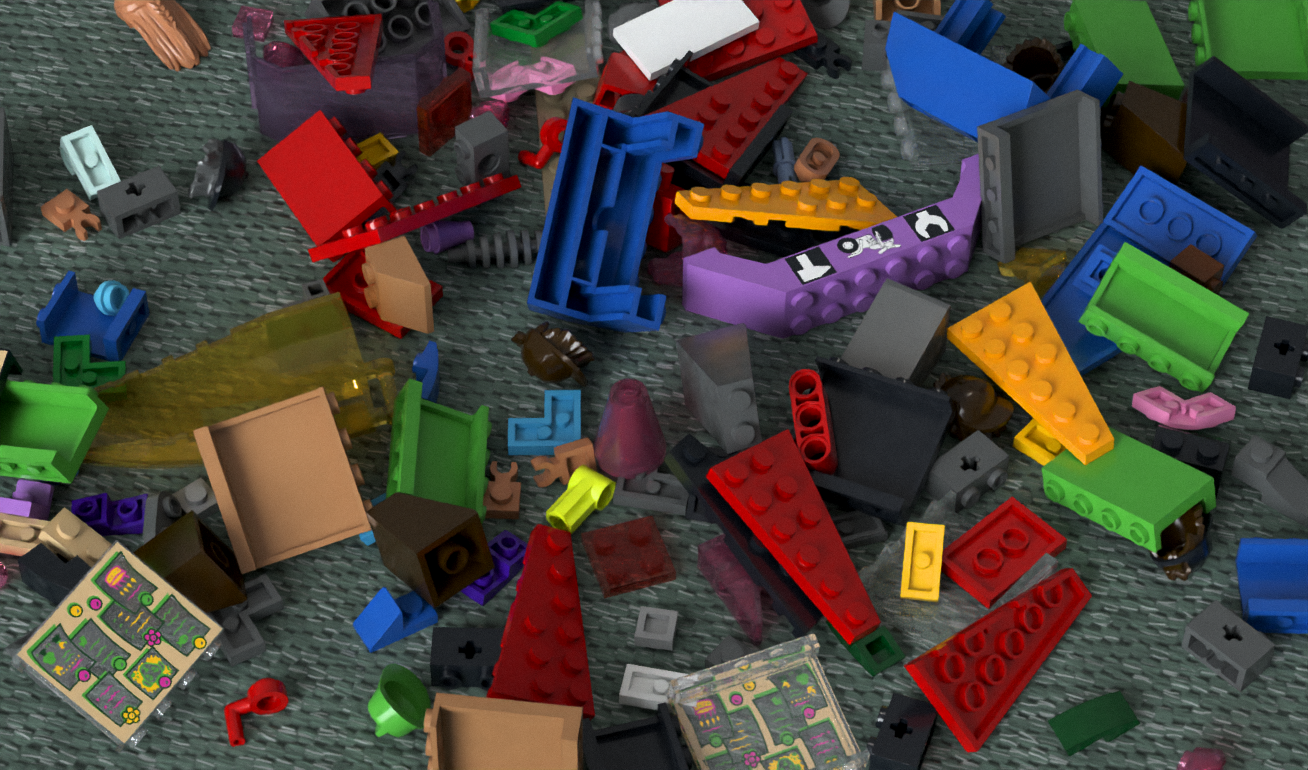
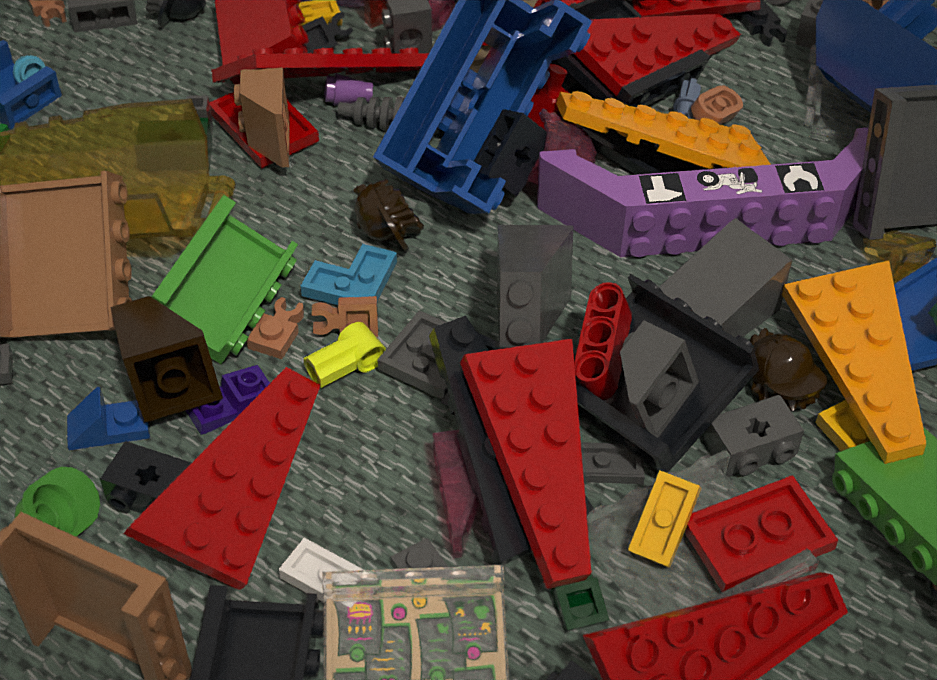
camera: 20 degrees right, 0 degrees up
(427, 371) = (265, 205): blue slope -> none
(628, 556) = (366, 426): clear red plate -> none
(629, 432) = (412, 298): clear pink cone -> none
(651, 260) = (511, 150): none -> black brick
(656, 628) = (355, 508): light grey plate -> none
(876, 440) = (657, 375): none -> dark grey slope

